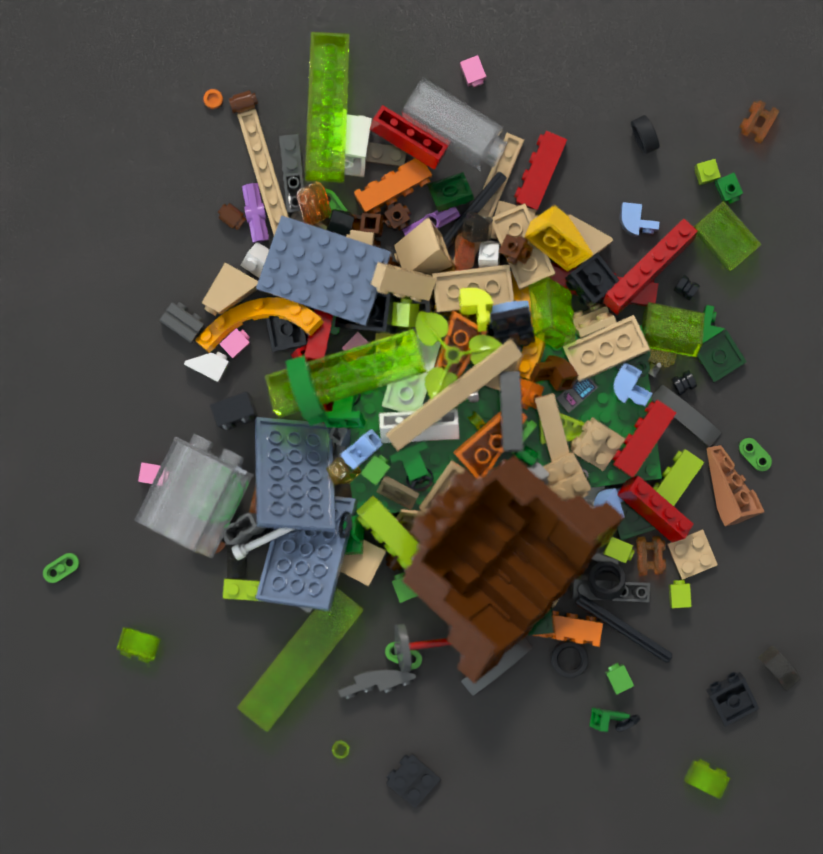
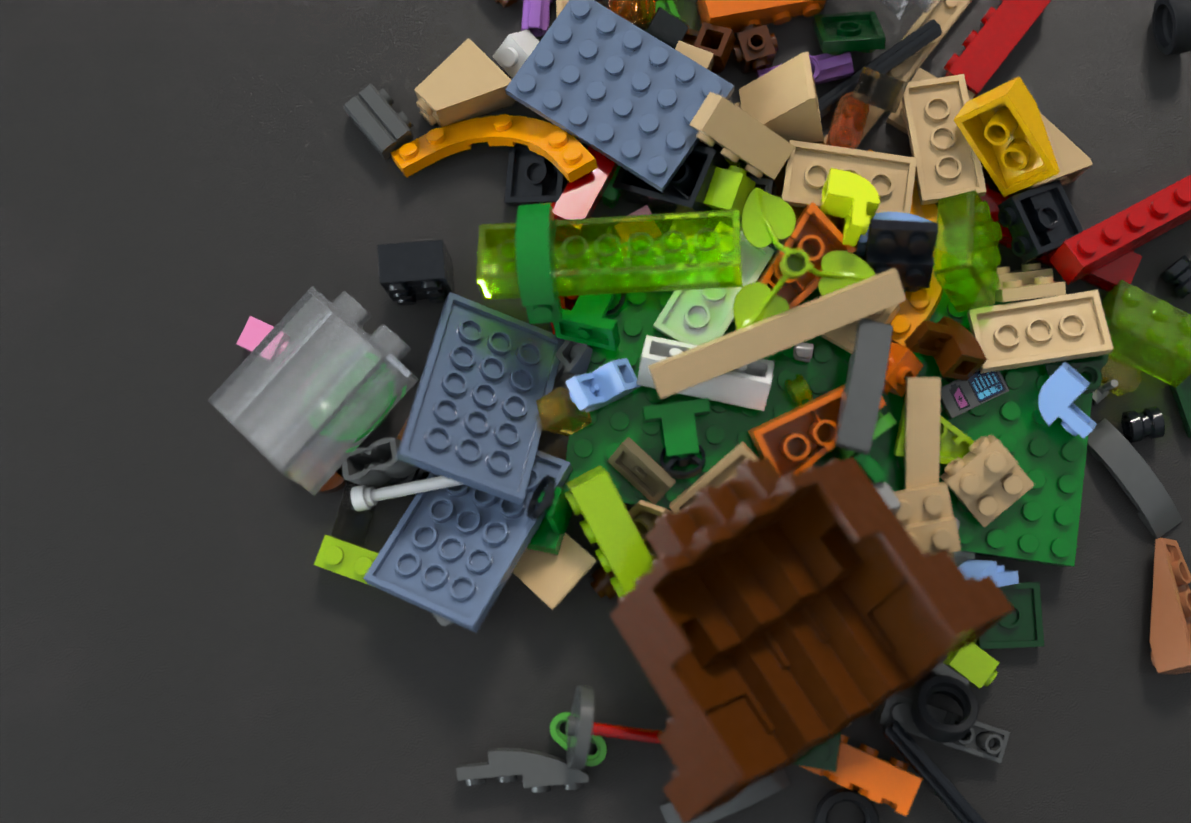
camera: 25 degrees right, 5 degrees down
(61, 567) = (80, 448): bright green plate -> none
(138, 644) = (162, 603): clear neon green brick -> none
(210, 365) = (401, 197): white slope -> none
(235, 343) = (451, 174): bright pink brick -> none
(299, 660) = (407, 700): clear neon green brick -> none
(376, 469) = (616, 423): bright green brick -> none
(402, 590) = (605, 631): bright green brick -> none
(489, 254) = (886, 137): white slope -> none
(516, 249) = (935, 135): reddish brown brick -> none
(631, 223) = (1121, 155): light blue brick -> none
(644, 437) = (1065, 492): red brick -> none
(655, 509) = (1052, 613): red brick -> none
(657, 546) = (1035, 677): clear orange brick -> none
(678, 476) = (1094, 574): lime brick -> none
(679, 594) = (1054, 765): lime brick -> none
(692, 554) = (1088, 704): tan plate -> none

